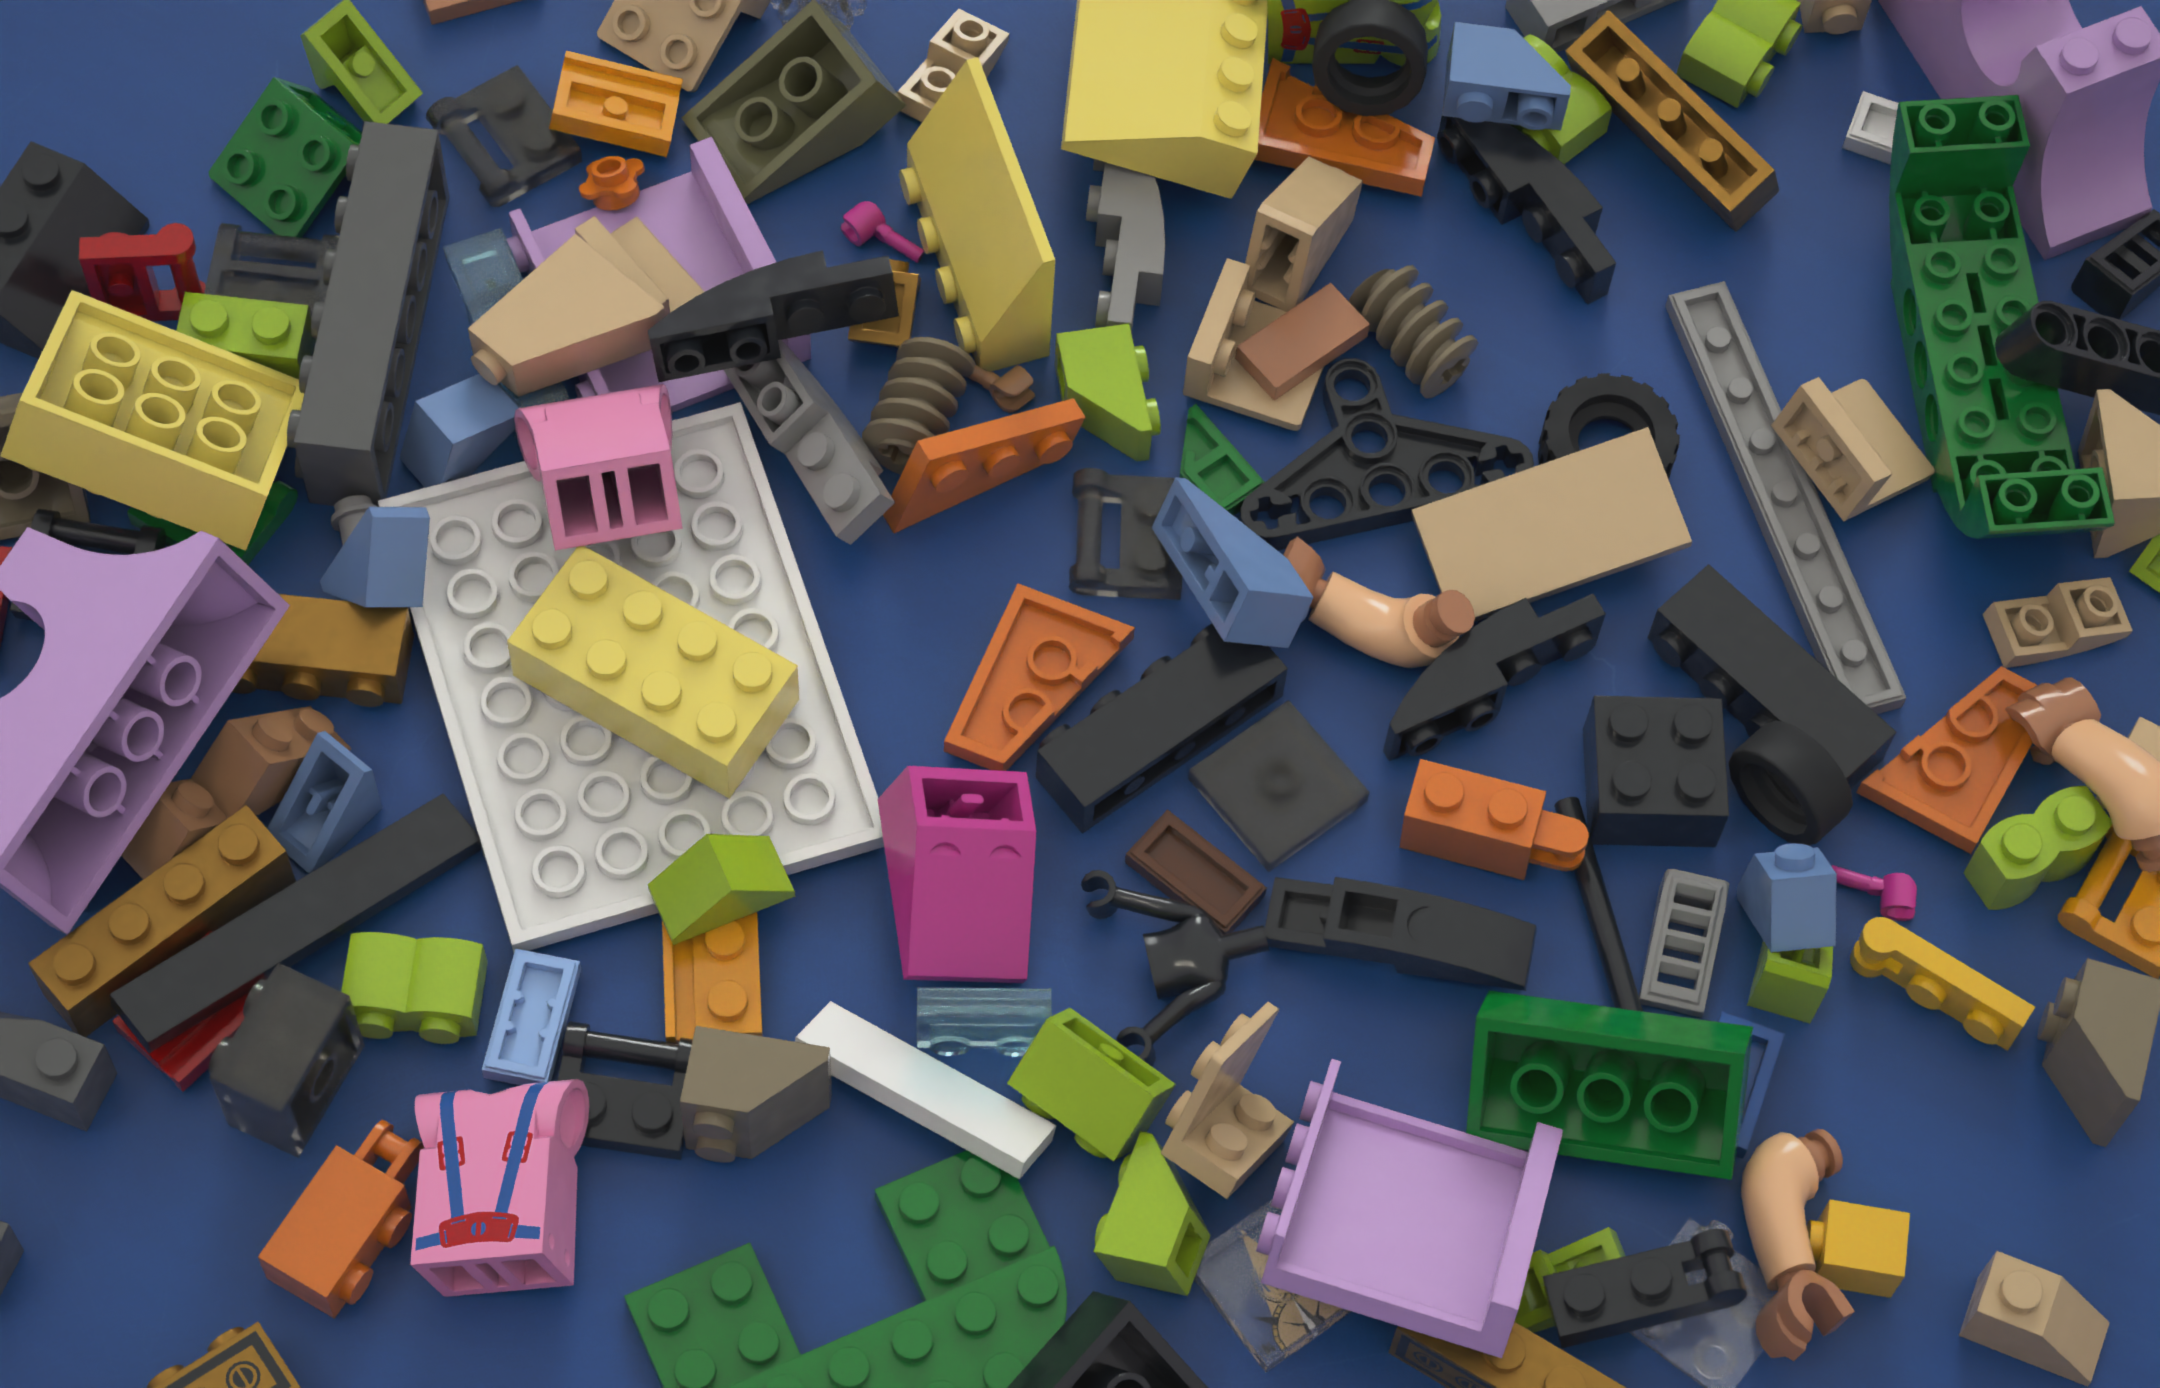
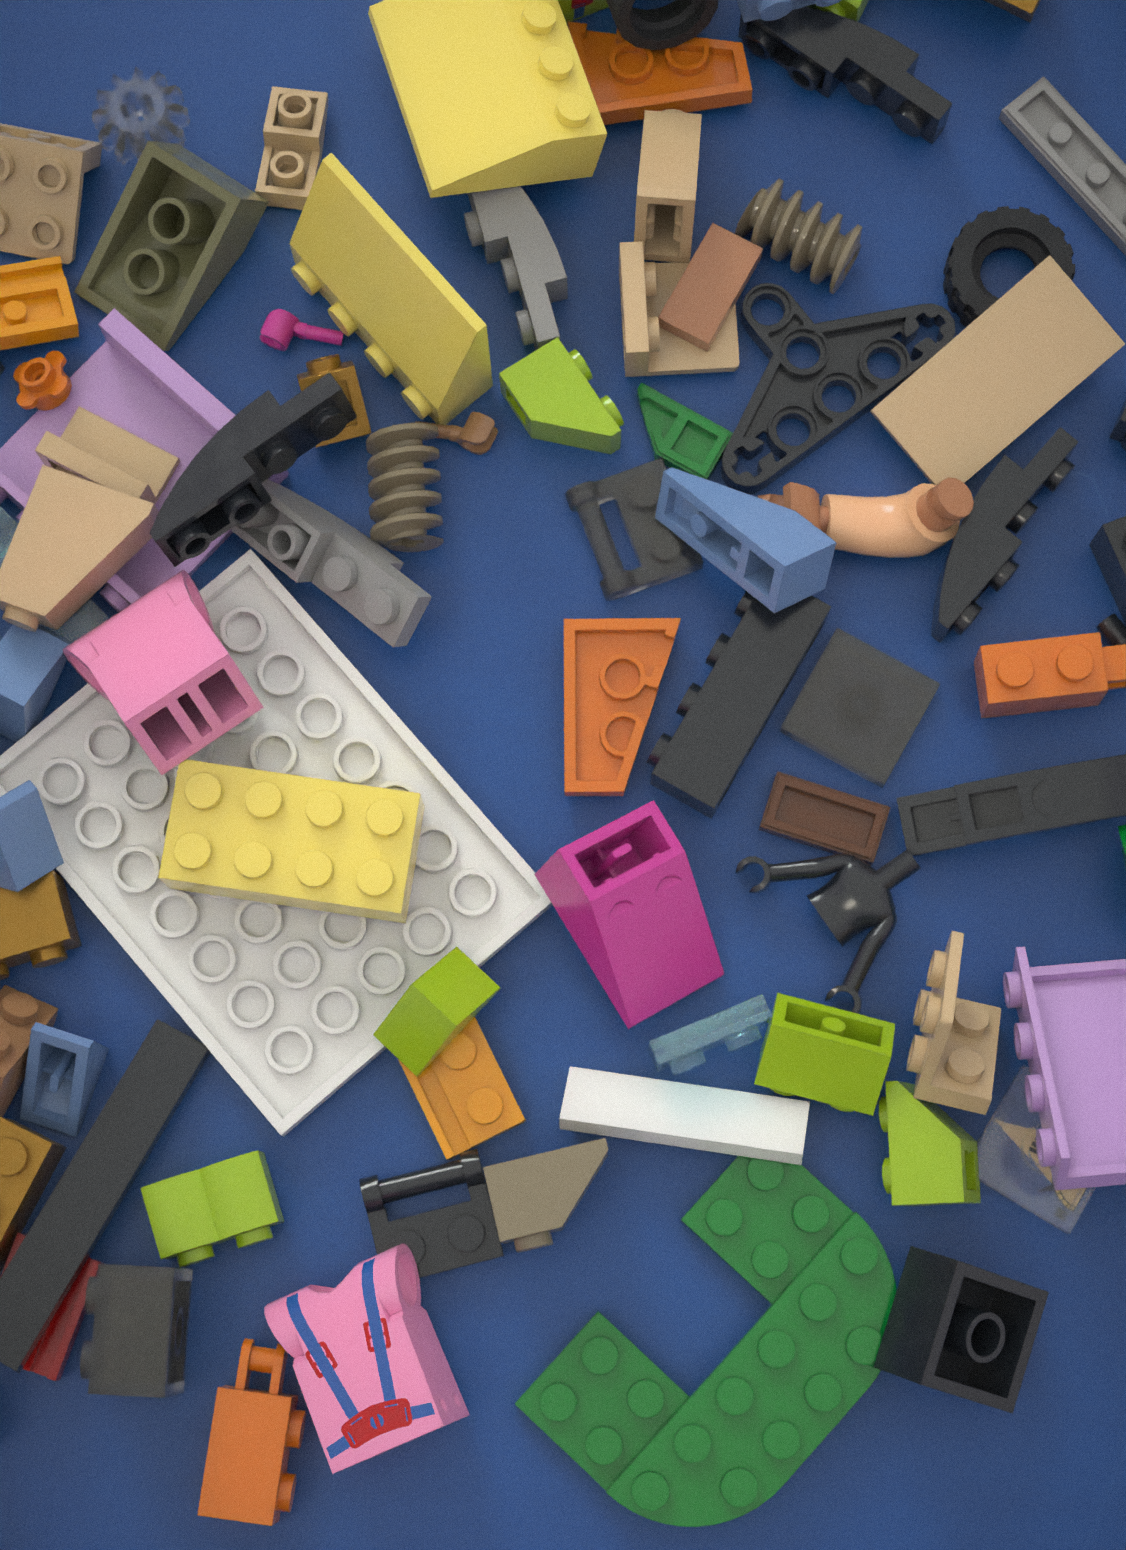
camera: 15 degrees left, 15 degrees up
(531, 1018) = (326, 1191): light blue plate -> none
(978, 458) = (486, 514): orange wing -> none

